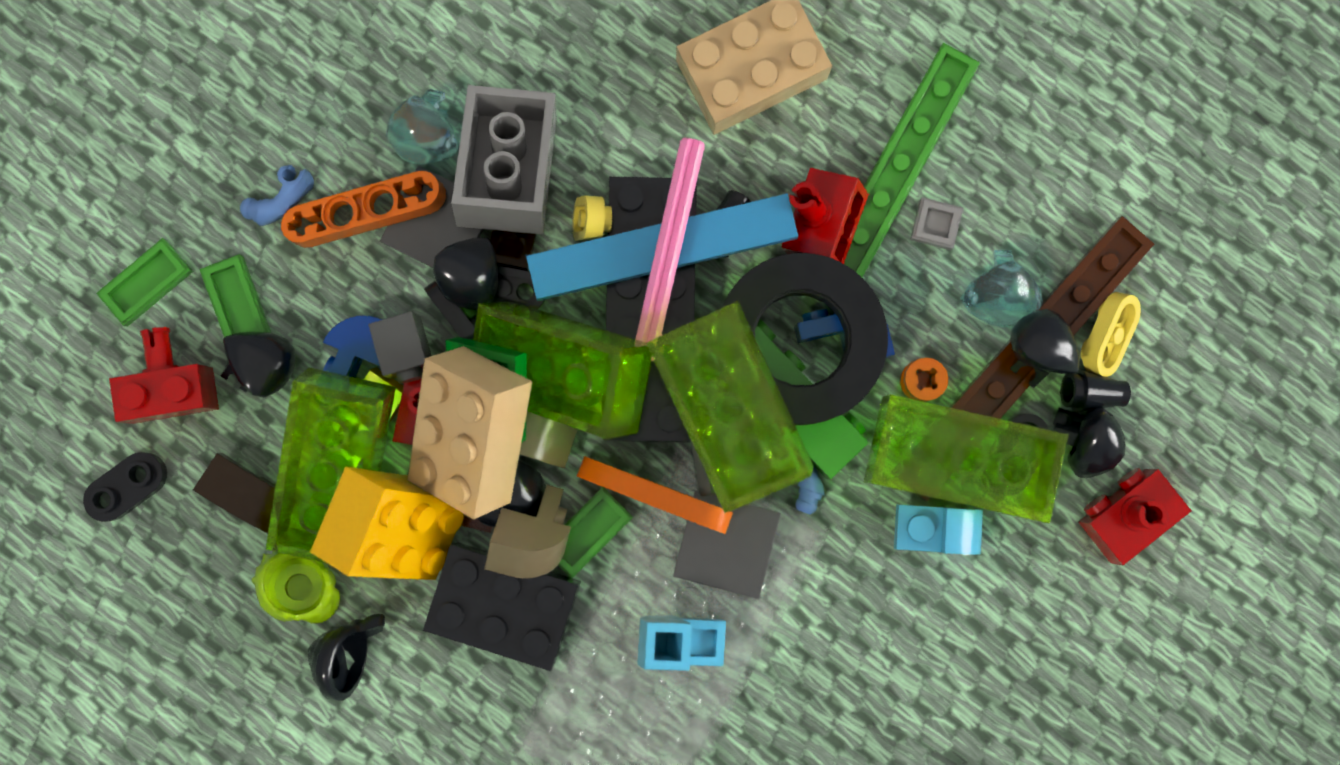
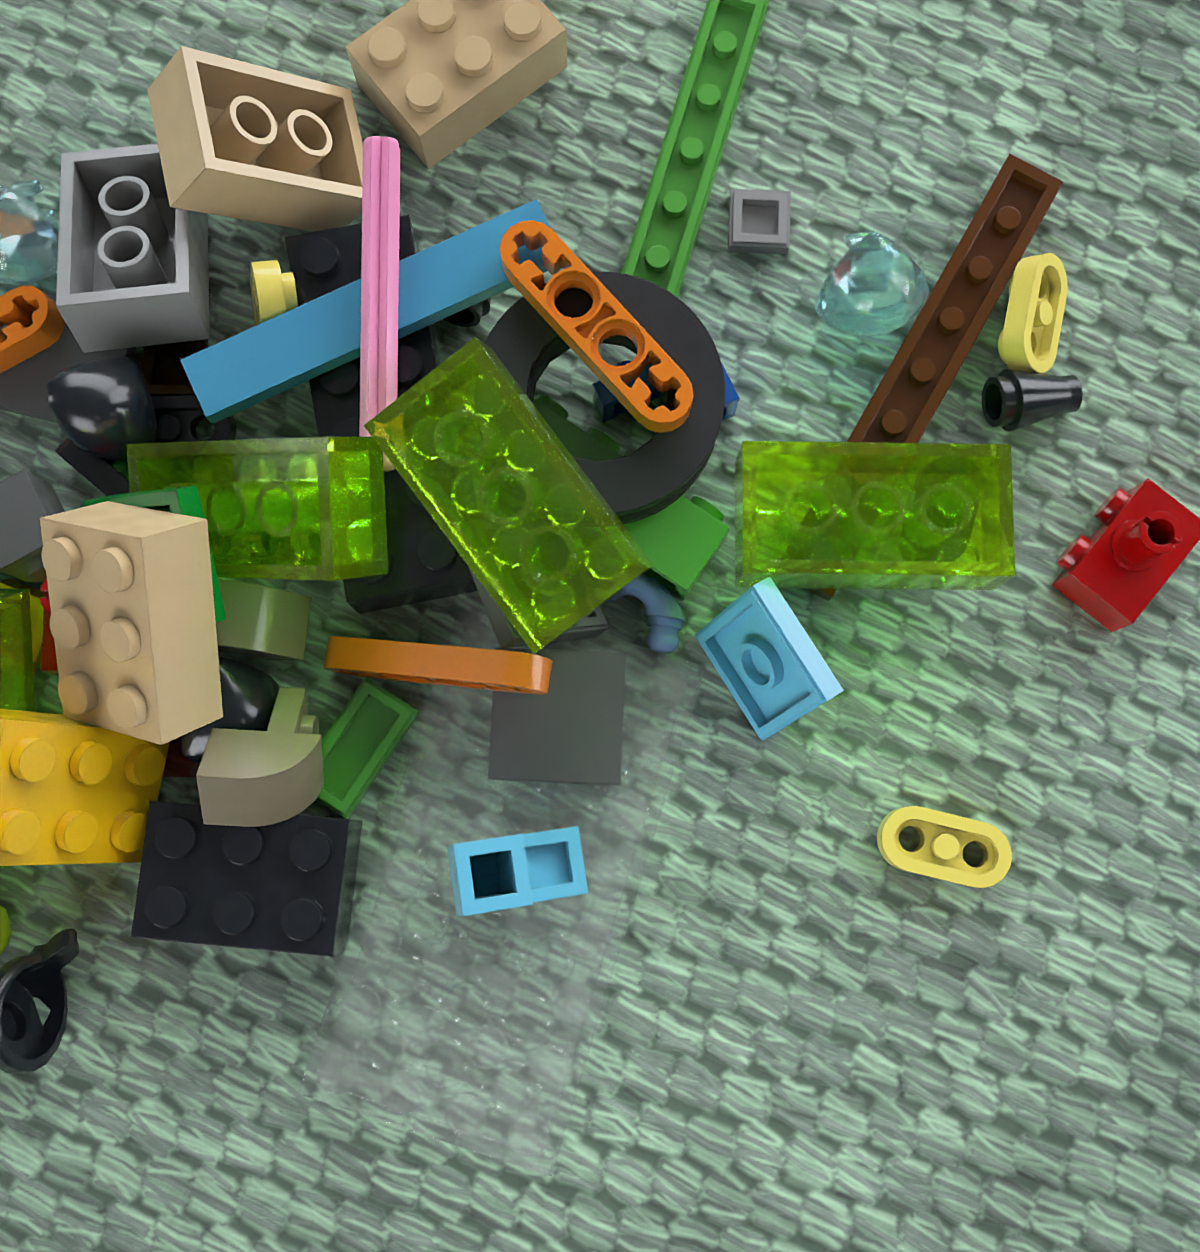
camera: 10 degrees left, 5 degrees down
(606, 110) = (256, 143): none -> tan brick
(816, 292) = (603, 320): none -> orange beam
(826, 214) = (603, 217): red brick -> none
(873, 538) = (767, 659): none -> medium azure tile
(918, 386) = (791, 408): orange wheel -> none
(938, 529) = (864, 627): medium azure brick -> none
(961, 682) = (942, 846): none -> light yellow plate
(1045, 344) = (946, 333): black piece -> none
(1094, 439) = (1050, 463): black piece -> none

